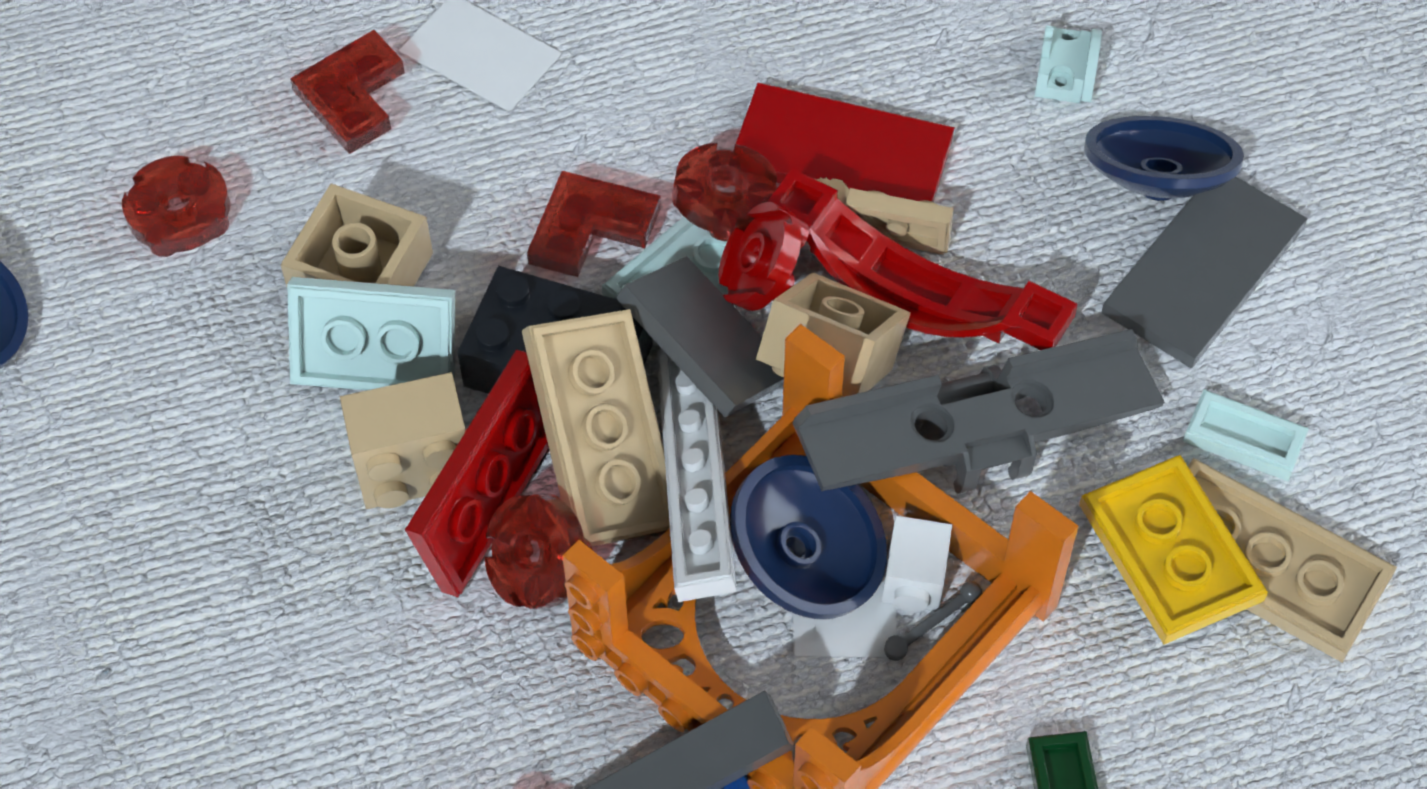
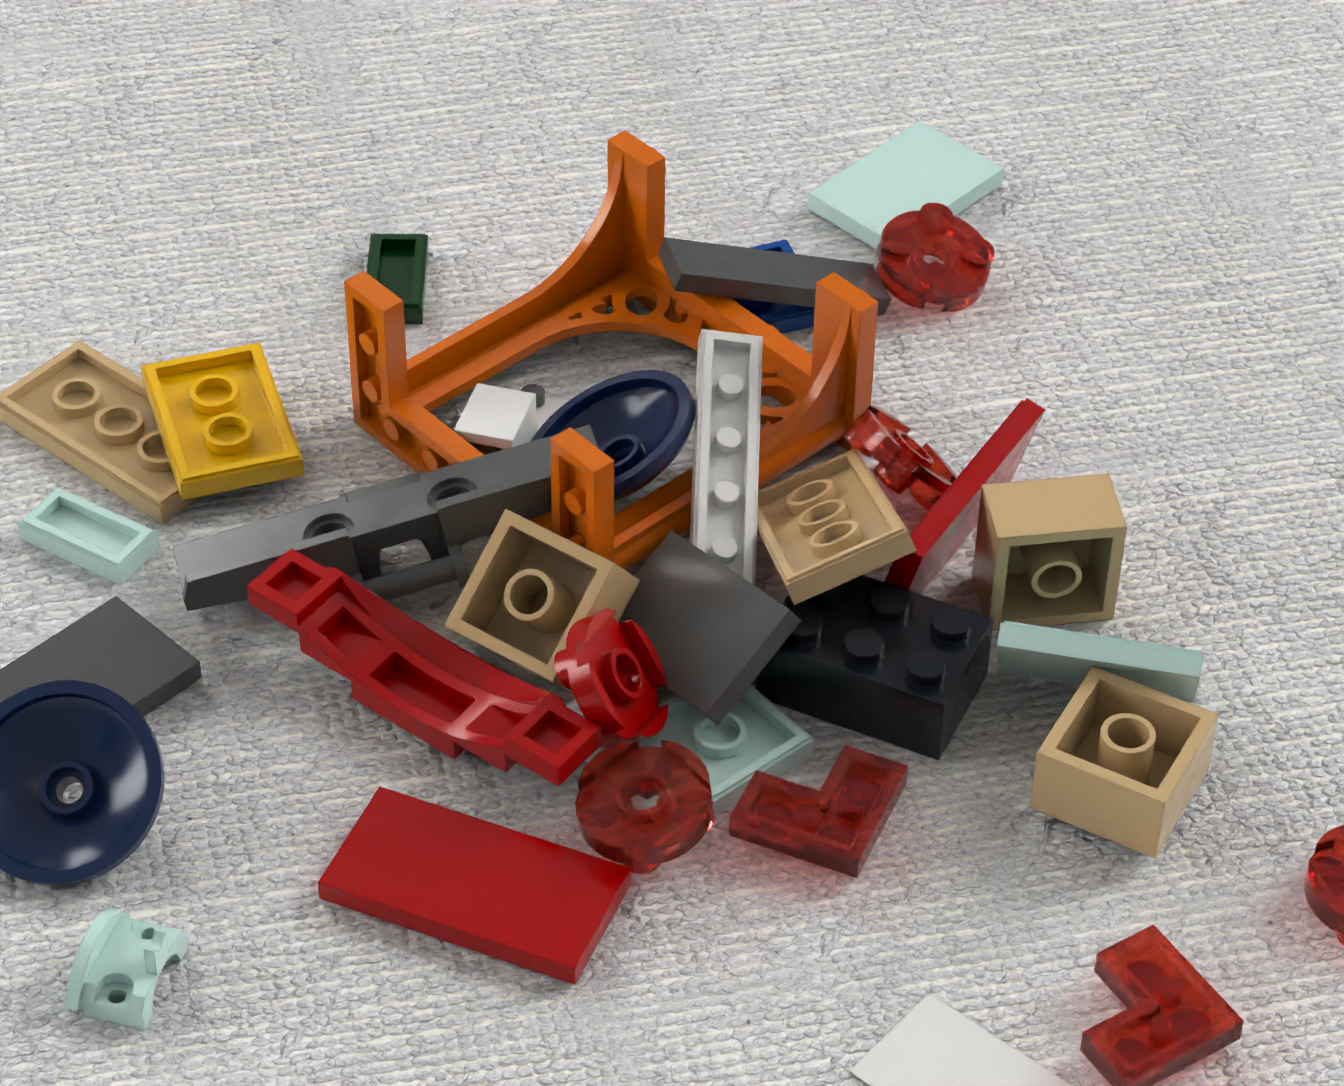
camera: 175 degrees left, 15 degrees down
(906, 221) = (447, 774): tan hinge -> none

